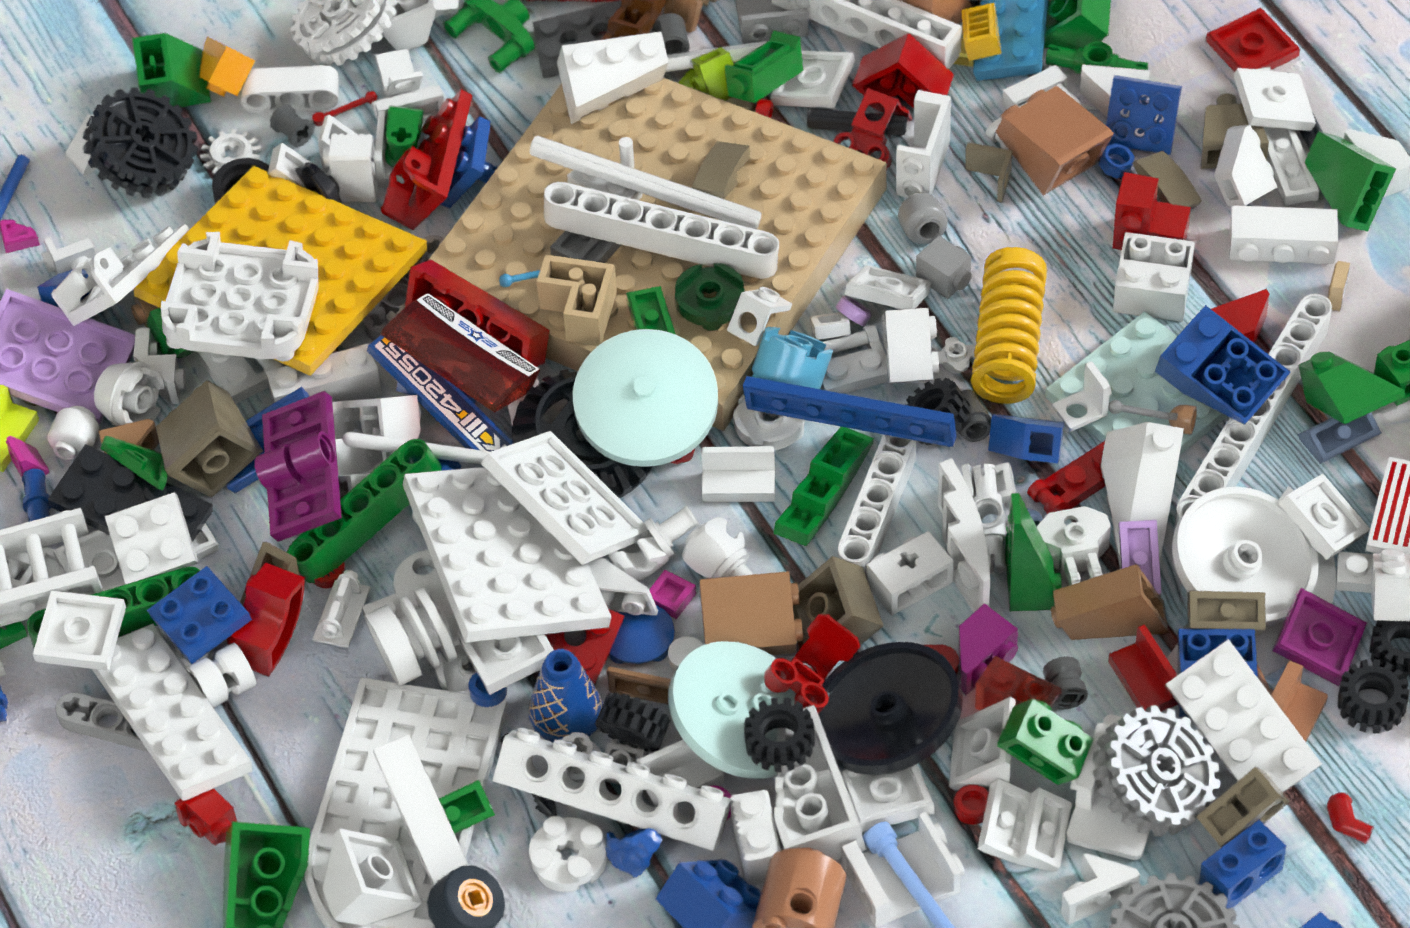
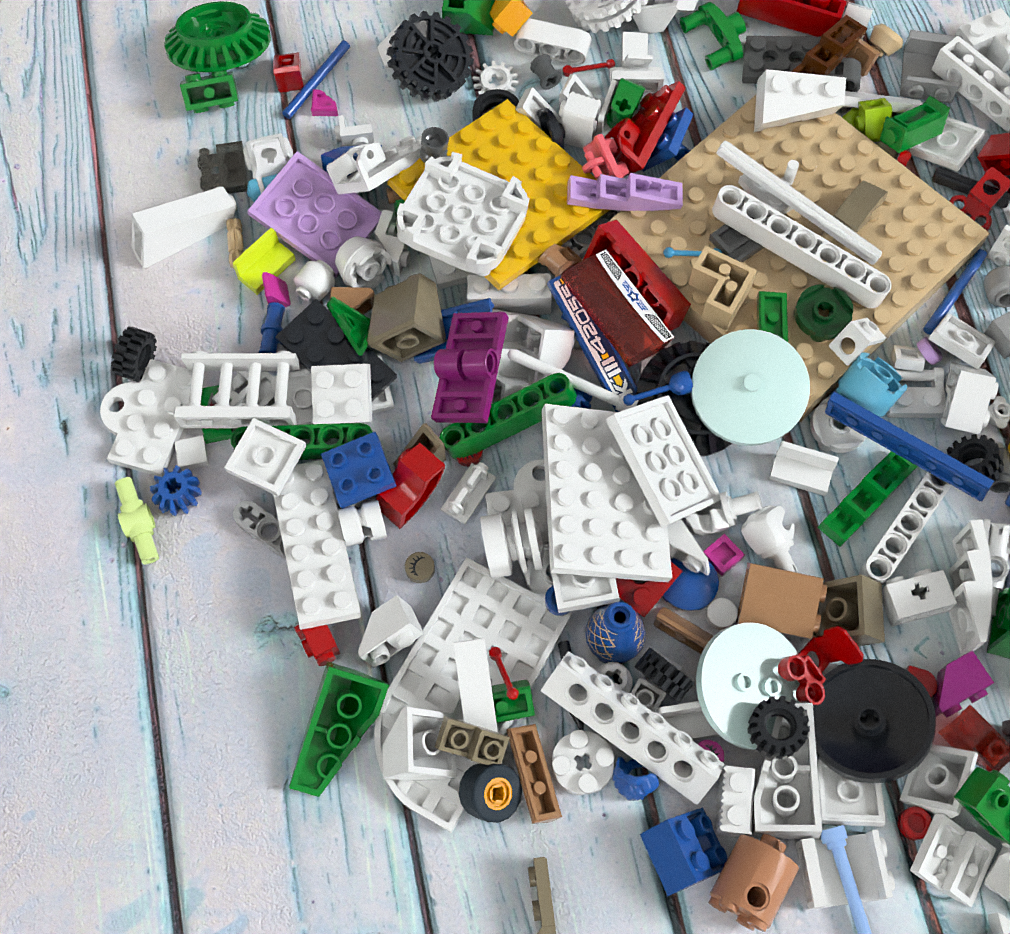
camera: 15 degrees right, 15 degrees up
(179, 228) = (434, 143): none -> dark grey wheel
(291, 779) = (389, 631): none -> white slope
(307, 708) = (419, 567): none -> dark tan tile
(368, 323) = (559, 259): none -> medium nougat piece
(393, 202) = (600, 158): none -> coral hips
(426, 852) = (471, 741): none -> dark tan slope
(442, 228) = (622, 194): none -> lavender slope
(459, 789) = (495, 654): none -> red hinge
(513, 875) = (534, 774): none -> medium nougat slope
(560, 417) = (679, 384): none -> blue hinge
(871, 233) = (955, 291): none -> blue bar

